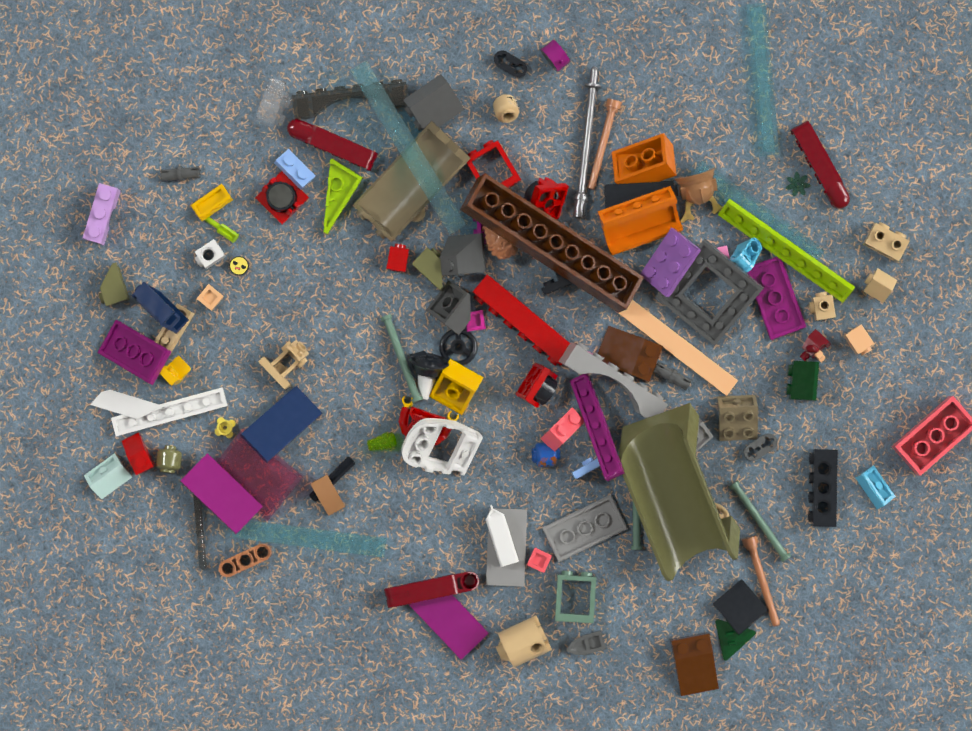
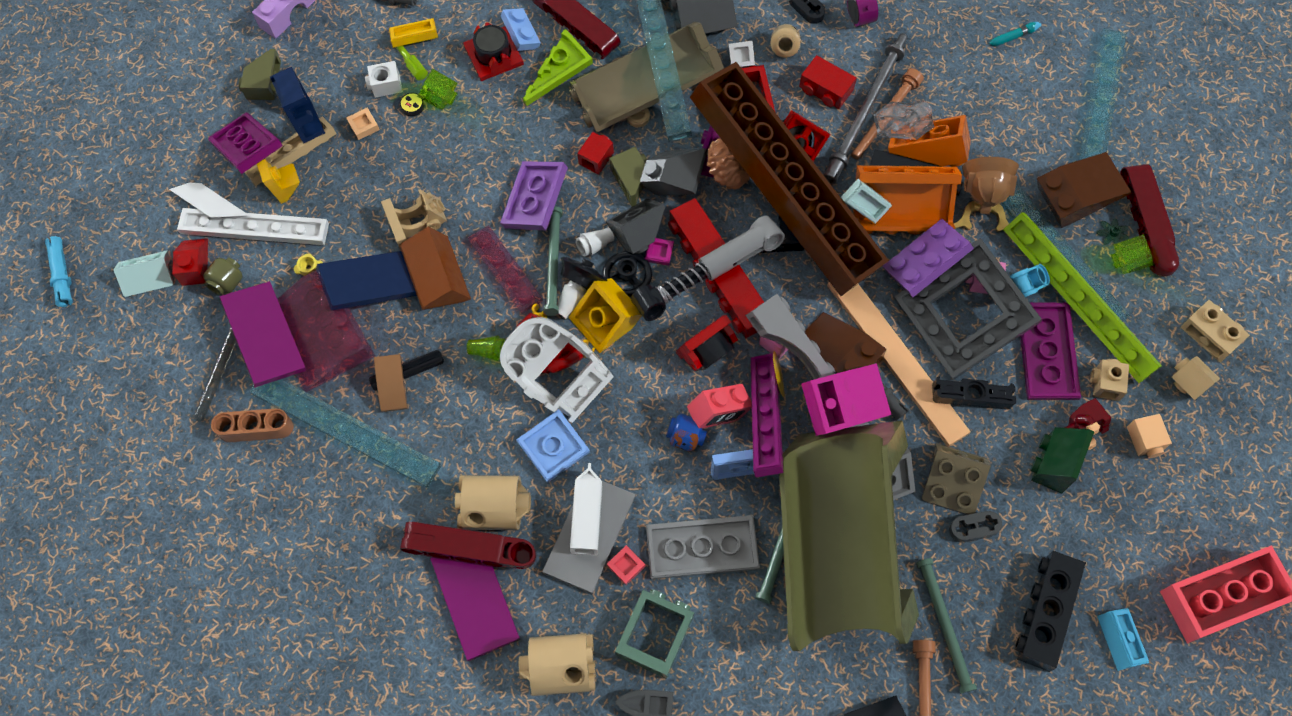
camera: 25 degrees right, 20 degrees down
(42, 496) = (59, 277): none -> medium azure pin
(256, 250) = (438, 90): none -> clear neon green brick
(319, 398) = (434, 269): none -> dark orange slope
(367, 312) = (534, 195): none -> medium lavender plate
(368, 376) = (505, 269): none -> clear pink plate
(424, 332) = (593, 241): none -> white cone
(435, 554) = (491, 502): none -> tan cylinder
(458, 496) = (553, 446): none -> light blue plate
(476, 134) = (742, 53): none -> white brick
(547, 293) = (761, 236): none -> piece
(550, 133) = (827, 82): none -> red brick
(594, 390) = (778, 372): none -> yellow sticker
(613, 236) = (866, 201): none -> light aqua tile
(619, 152) = (904, 120): none -> clear hinge
(648, 399) = (846, 399): none -> dark pink slope
(674, 37) = (1014, 34): none -> teal piece
(721, 356) = (957, 393): none -> black piece
(766, 161) = (1082, 188): none -> reddish brown slope
(814, 203) = (1132, 255): none -> clear neon green brick

